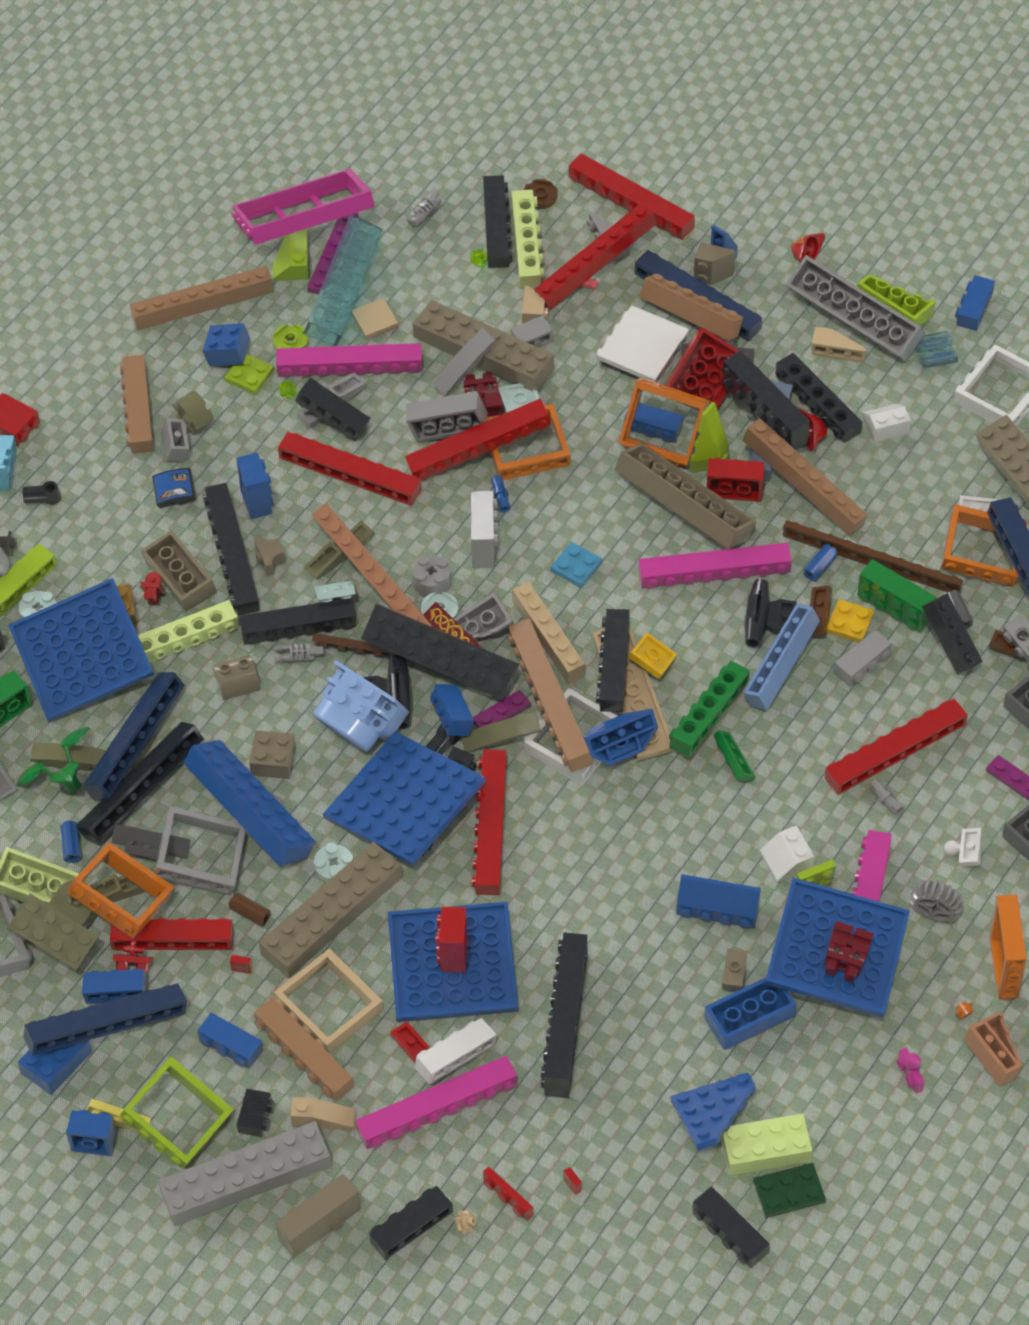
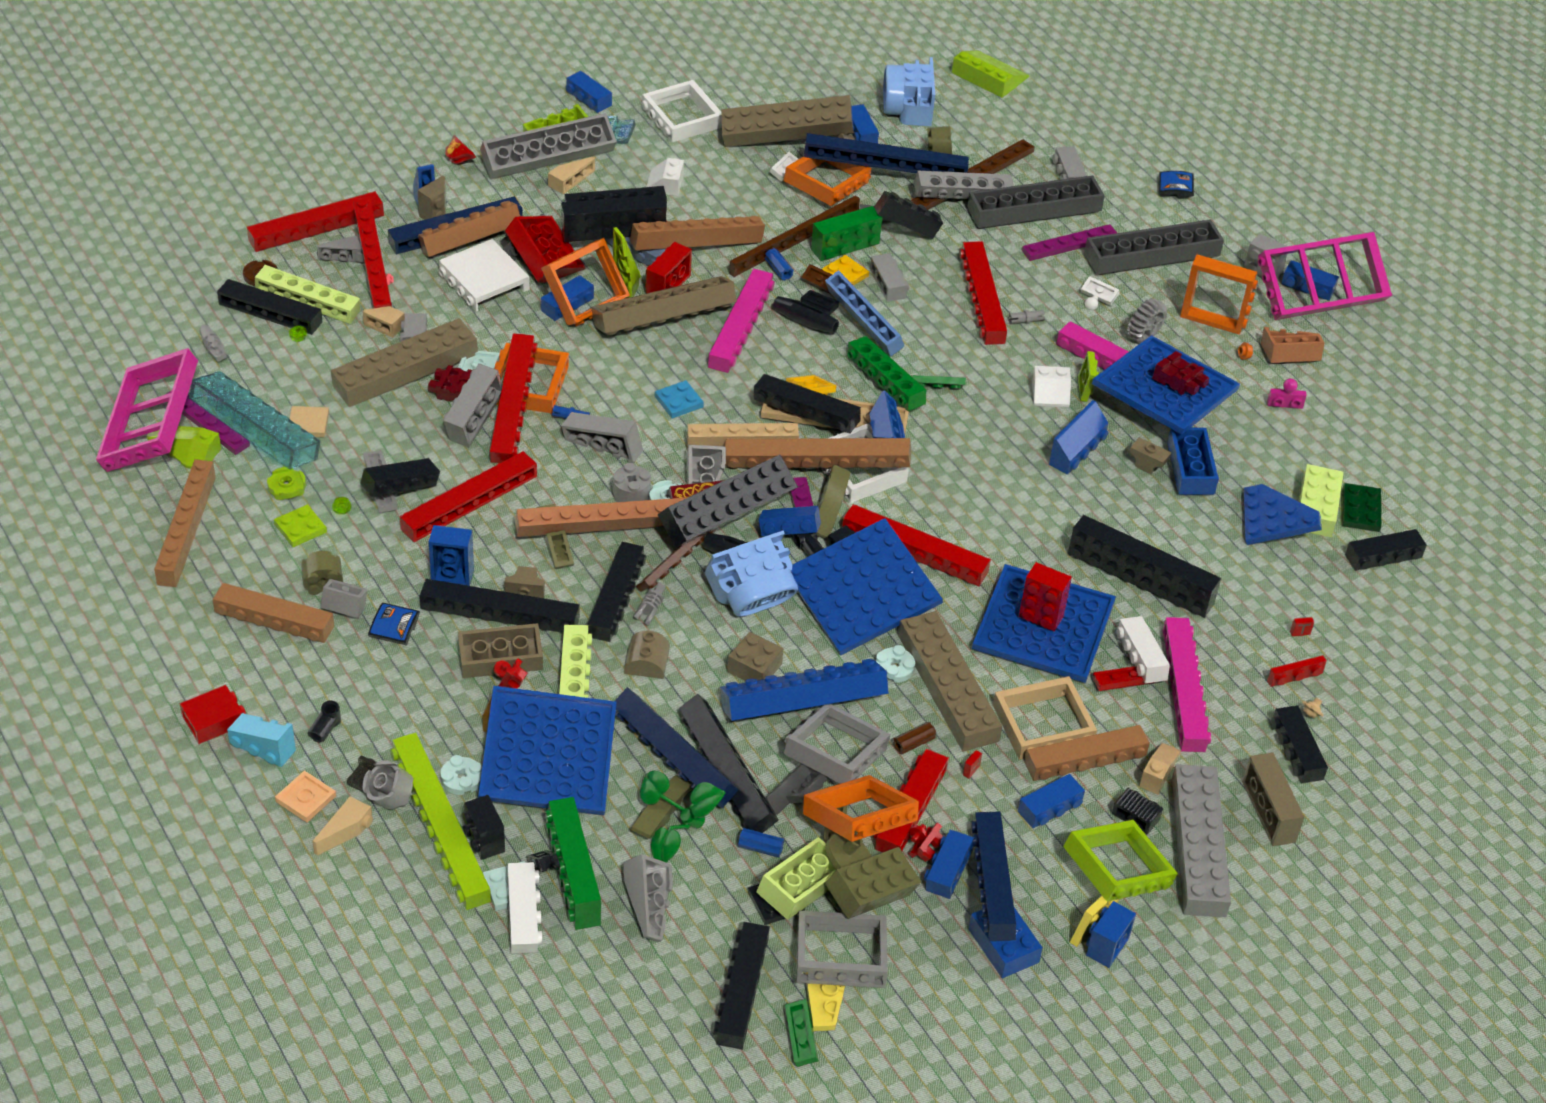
camera: 70 degrees left, 10 degrees down
(226, 344) = (261, 521): blue brick -> none
(329, 591) = (603, 551): light aqua plate -> none
(349, 359) = (344, 453): dark pink brick -> none
(463, 361) = (419, 374): light grey slope -> none

